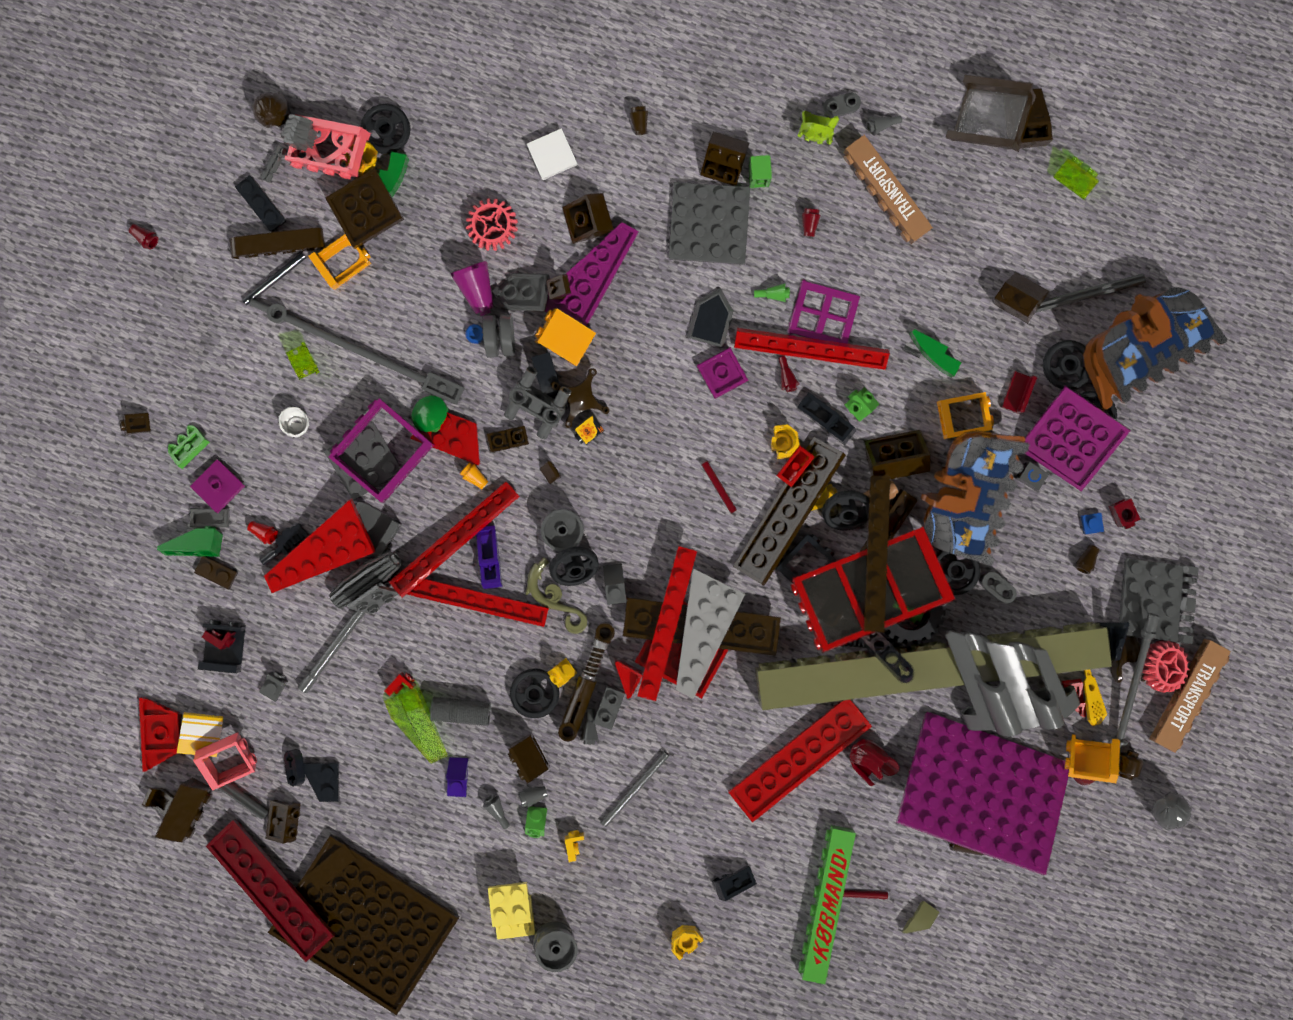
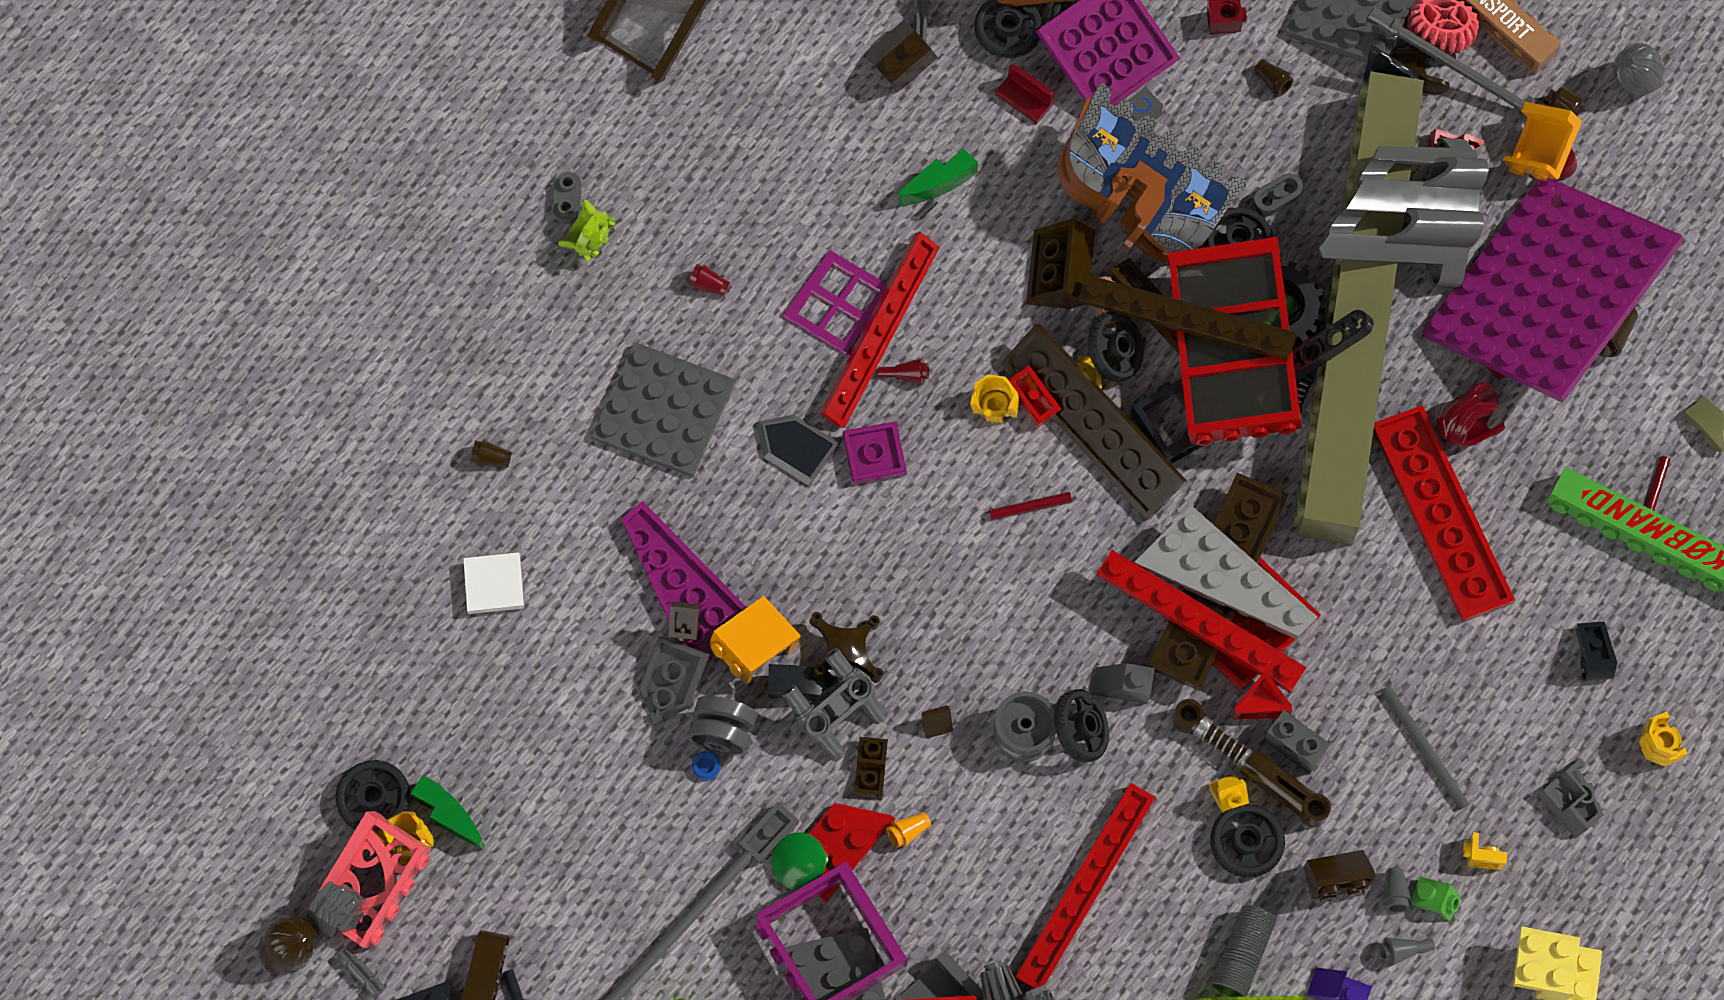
camera: 70 degrees left, 20 degrees down
(319, 259) = (509, 899): light orange panel -> none
(364, 208) = (478, 852): dark brown plate -> none
(454, 539) = (992, 882): red plate -> none
(475, 286) = (641, 739): magenta cone -> none
(488, 232) = (553, 701): coral gear -> none
(489, 558) = (1032, 844): dark purple slope -> none
(532, 587) = (1113, 768): olive plant -> none
(555, 946) = (1625, 922): dark grey wheel -> none
(587, 217) = (599, 562): dark brown slope -> none
(588, 430) = (895, 650): brick -> none
(589, 732) = (1325, 782): dark grey cone -> none
(623, 897) = (1579, 807): none -> dark grey slope
(724, 158) = (584, 361): dark brown slope -> none
(759, 171) = (620, 319): bright green panel -> none
(777, 293) = (789, 349): bright green cone -> none
(826, 418) = (981, 338): black slope -> none
(861, 403) = (976, 287): bright green brick -> none
(878, 124) = (610, 161): dark grey cone -> none
(887, 190) = (701, 173): medium nougat brick -> none
(945, 415) = (1026, 190): light orange window -> none
(1092, 523) = (1227, 59): blue plate -> none
(1094, 703) = (1466, 123): yellow piece -> none

